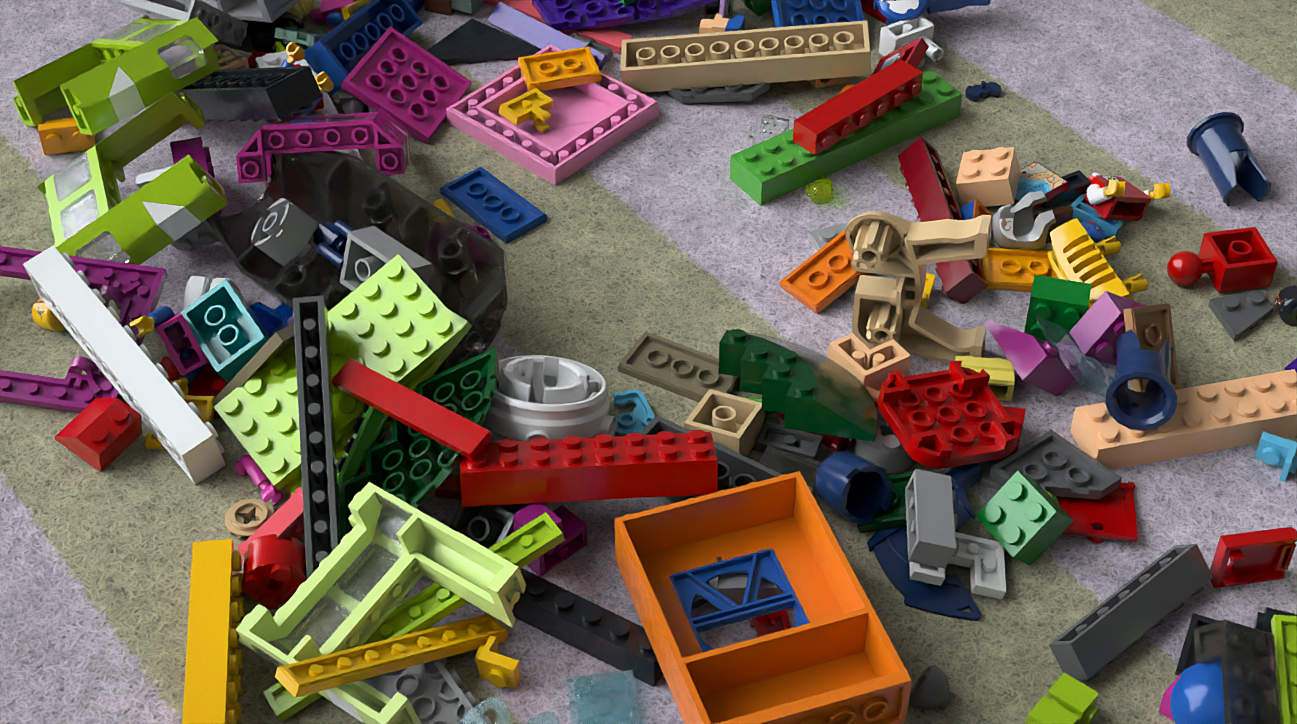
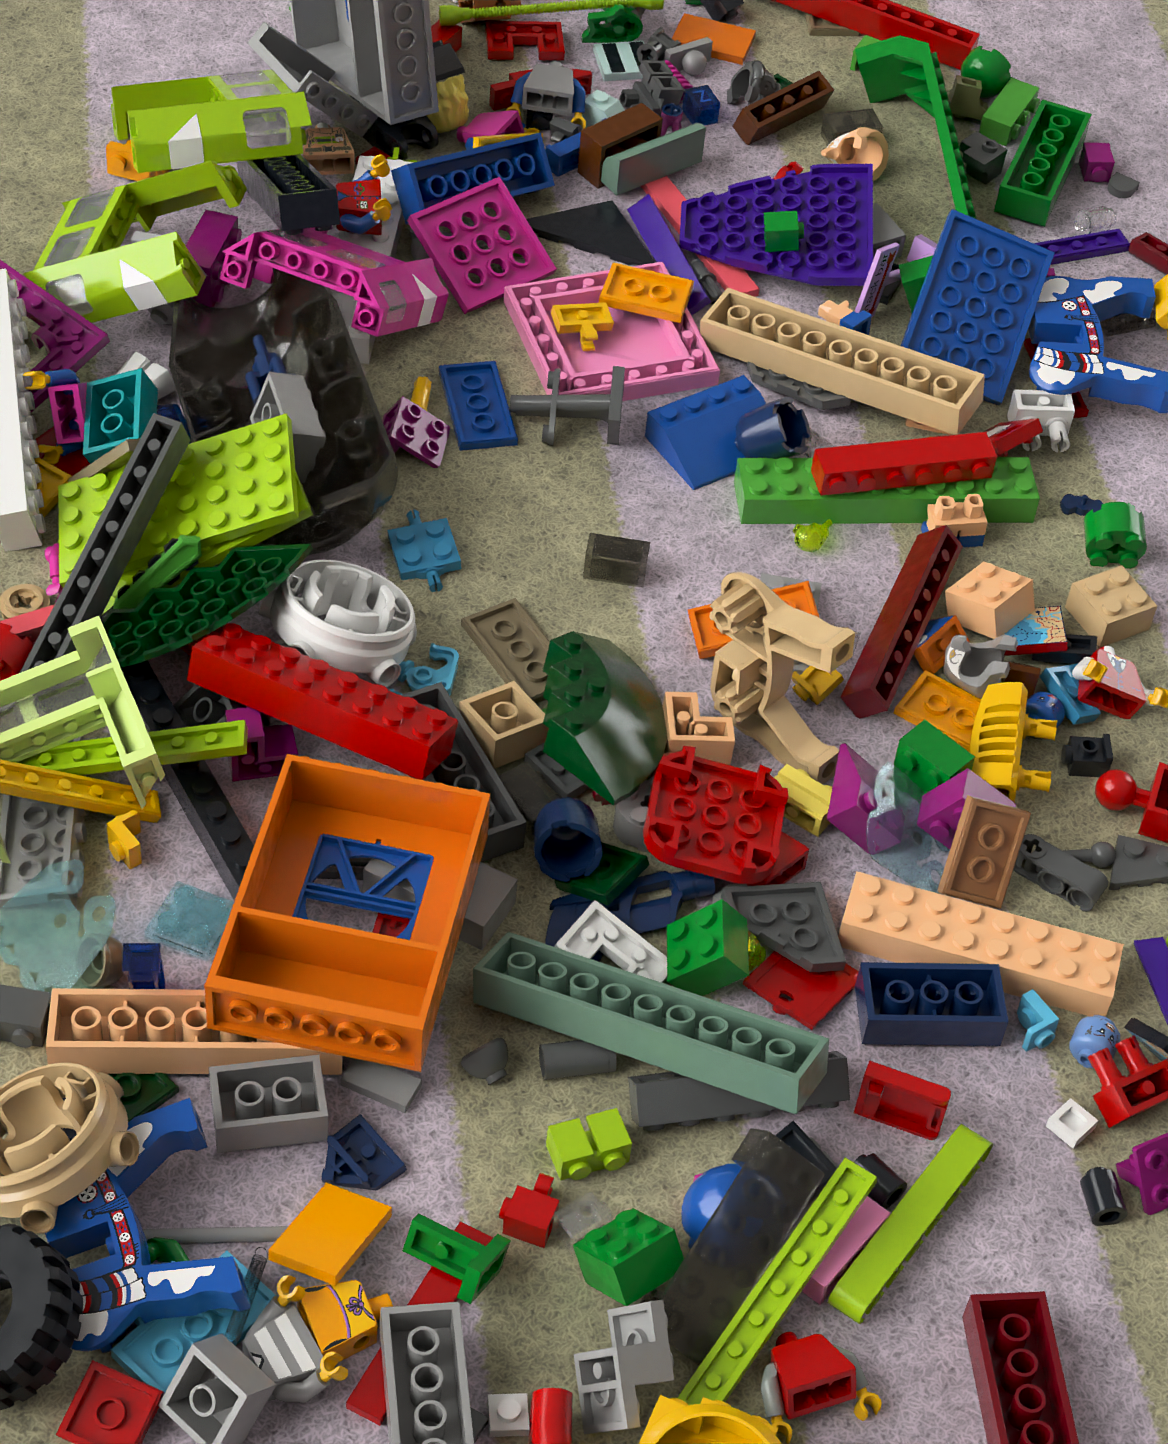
camera: 25 degrees right, 5 degrees up
(284, 232) = (226, 346): light grey brick -> none
(299, 35) = (417, 148): sand green wing -> none
(412, 409) = (195, 567): red tile -> none
(544, 327) = (424, 550): none -> dark azure plate
(606, 159) = (597, 406): none -> dark grey piece
(690, 148) = (700, 430): none -> blue slope
(700, 268) = (616, 560): none -> clear smoke brick
(742, 125) = (773, 431): none -> dark blue cylinder
(913, 128) = (963, 518): none -> light nougat hips
(930, 519) = (608, 904): light grey brick -> none
(994, 652) = (574, 1059): none -> dark grey pin
(1030, 97) = (1115, 535): none -> green brick
(1045, 589) = (652, 1022): none -> sand green brick
(1067, 145) = (1111, 606): none -> tan brick
(1144, 254) = (1087, 755): none -> black brick
(1148, 408) = (925, 877): dark blue piece -> none
(1204, 478) = (931, 1004): none -> dark blue brick
(1206, 344) = (1060, 873): none -> dark grey piece
(1210, 318) = (1101, 854): none -> dark grey bar

